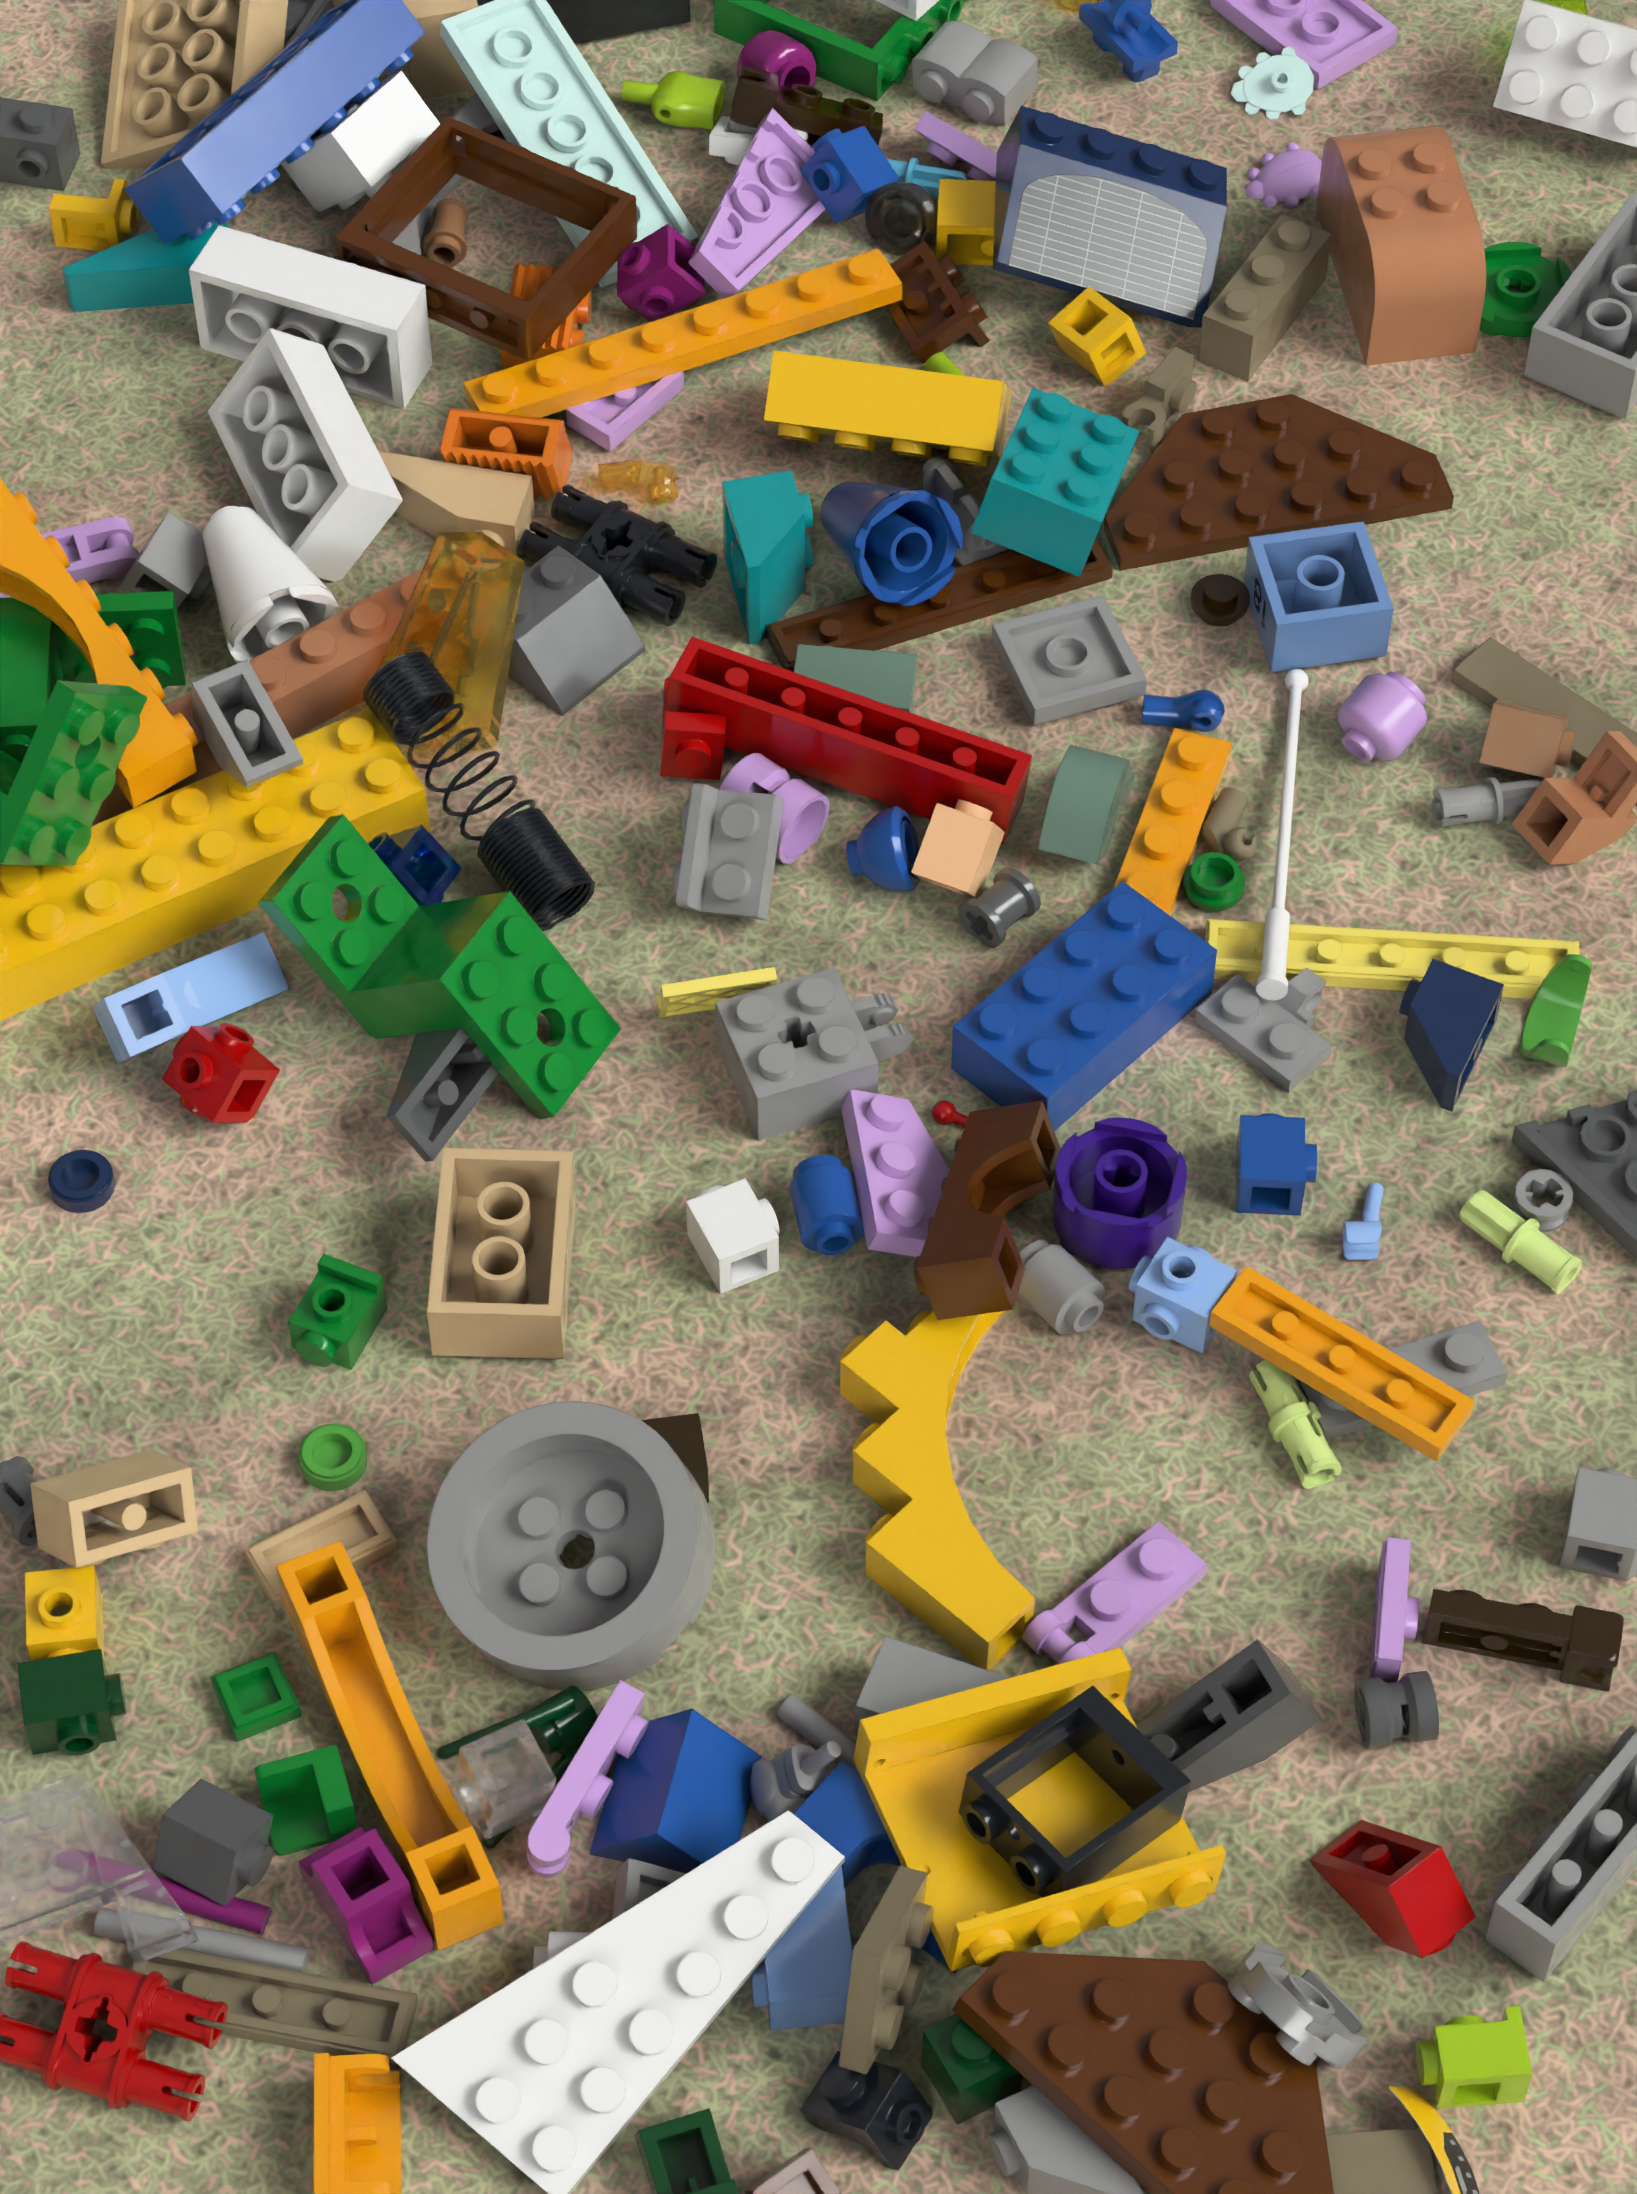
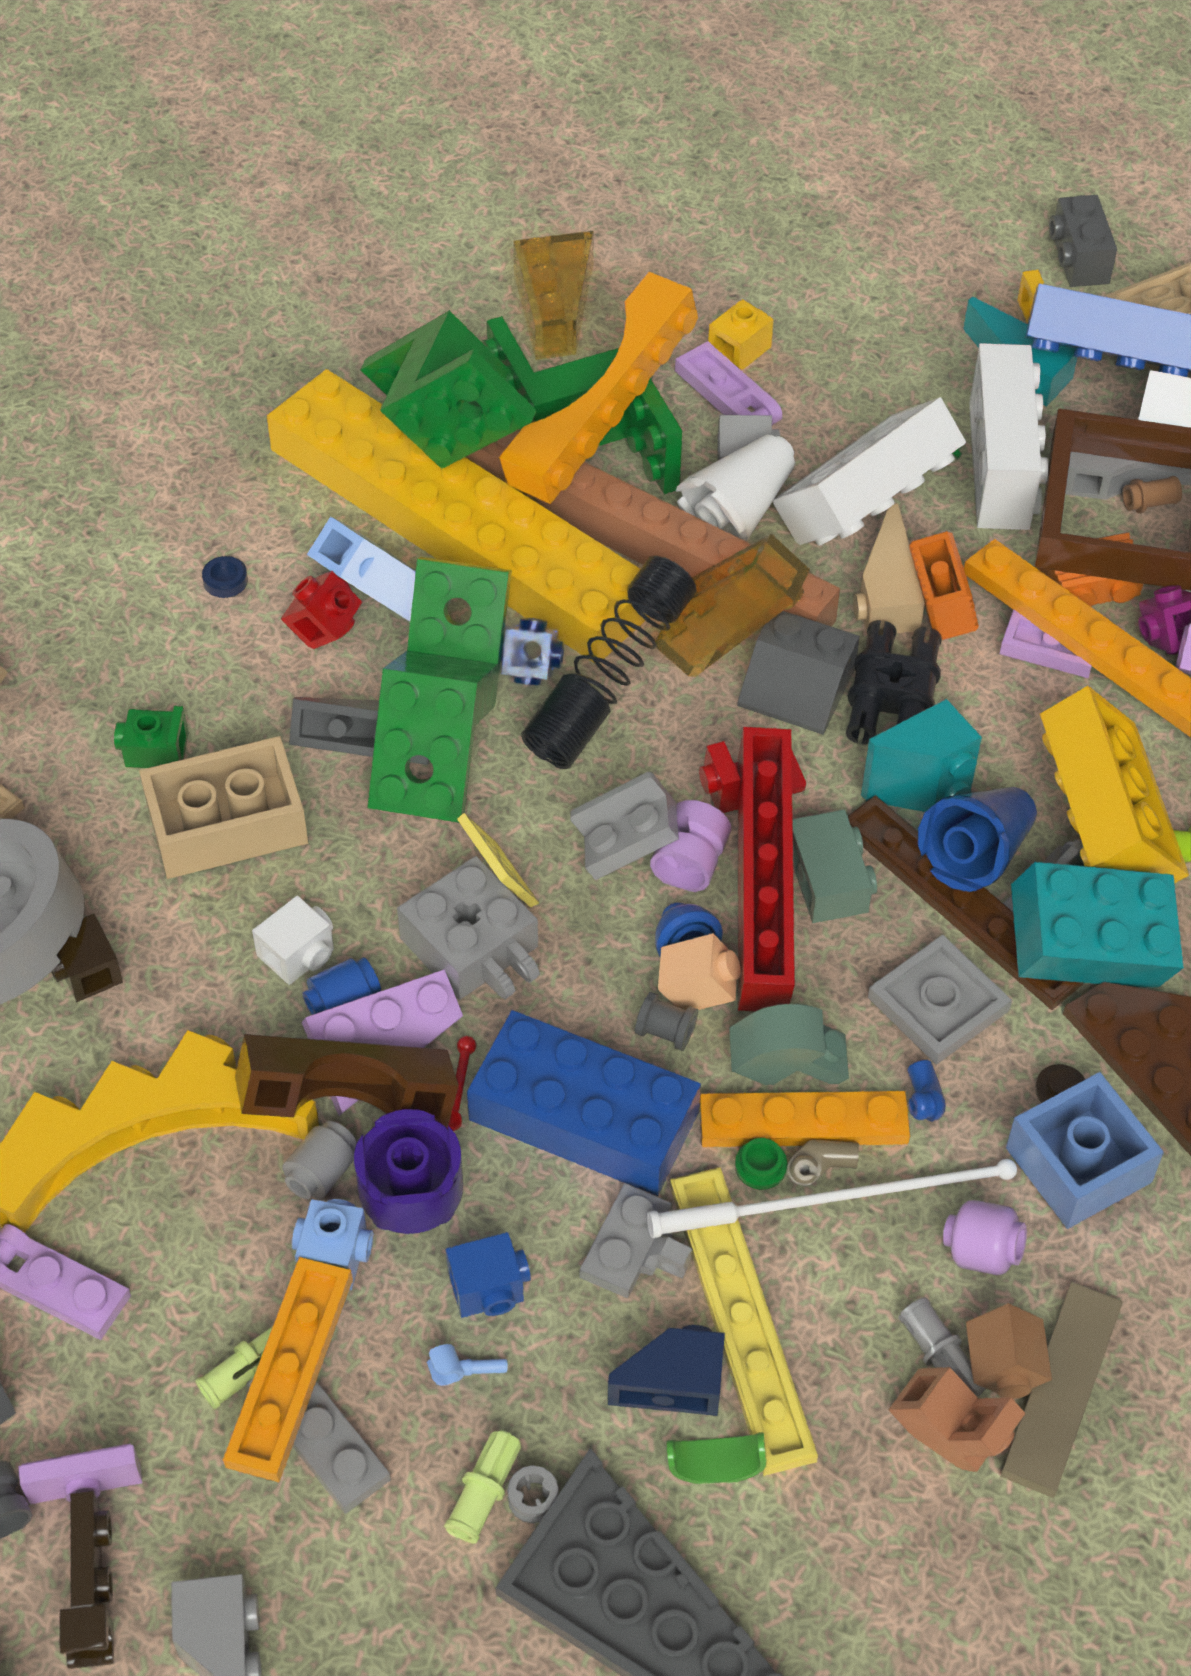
camera: 70 degrees right, 0 degrees up
(242, 725) = (579, 504): light grey slope -> none
(332, 1457) = (47, 777): bright green tile -> none
(640, 473) = (983, 674): clear yellow arm -> none

